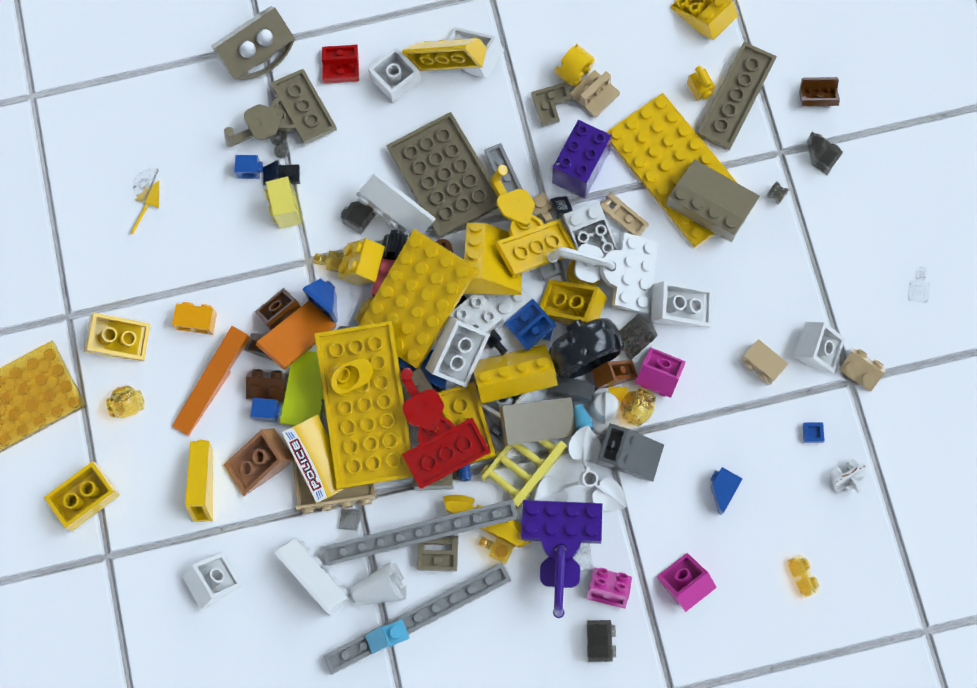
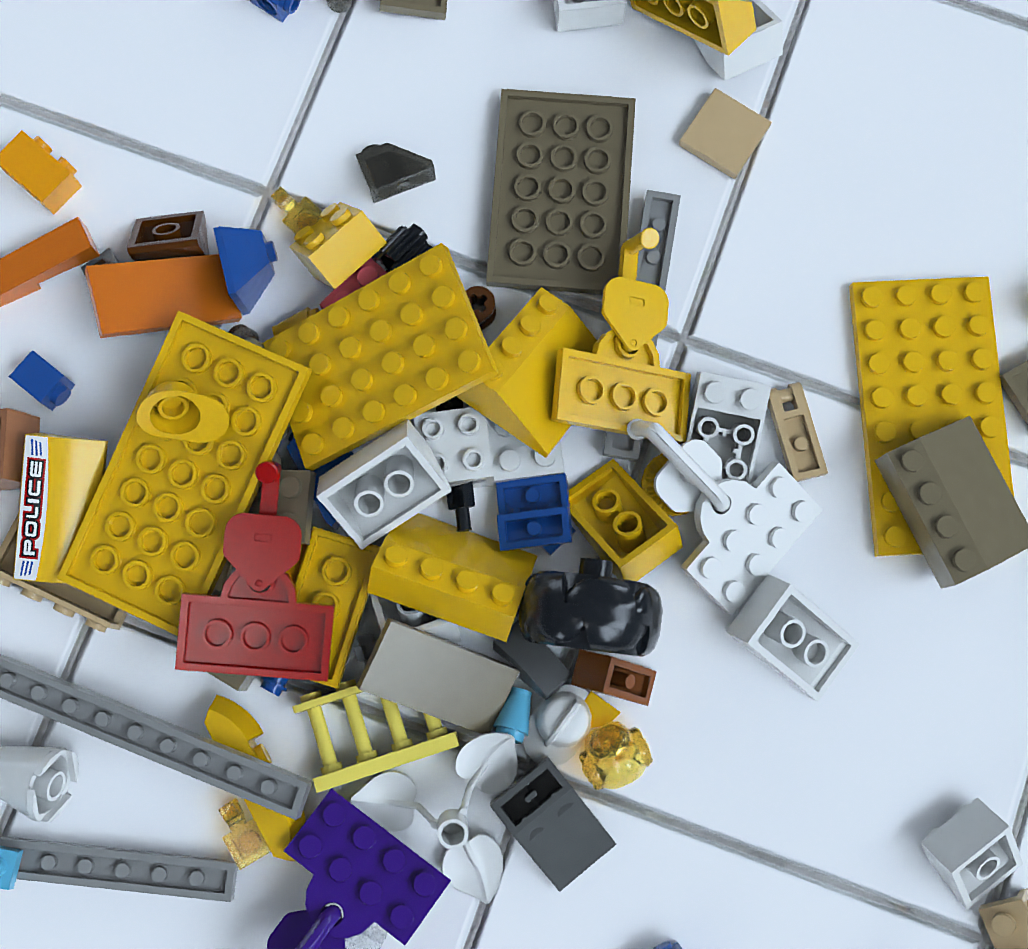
camera: 25 degrees right, 5 degrees up
(265, 384) = (73, 342): reddish brown bracket -> none
(276, 171) = (317, 36): black slope -> none
(282, 203) = (284, 77): light yellow brick -> none
(303, 391) = (109, 396): neon yellow tile -> none
(350, 519) = (57, 635): clear smoke slope -> none
(393, 205) = (444, 187): white slope -> none
(438, 559) = (144, 790): dark tan plate -> none
(501, 101) = (725, 133): none -> tan tile
(543, 207) = (677, 338): tan plate -> none
(547, 99) = (800, 172): dark tan plate -> none
(560, 206) = (707, 355): slope -> none
(574, 65) = (876, 145): yellow brick -> none
(581, 159) = (789, 299): dark purple container -> none
(595, 93) = (881, 210): tan bracket -> none
(637, 335) = (689, 638): clear smoke bracket -> none
(660, 372) = (688, 724): dark pink slope -> none
(764, 362) = (865, 818): tan brick -> none

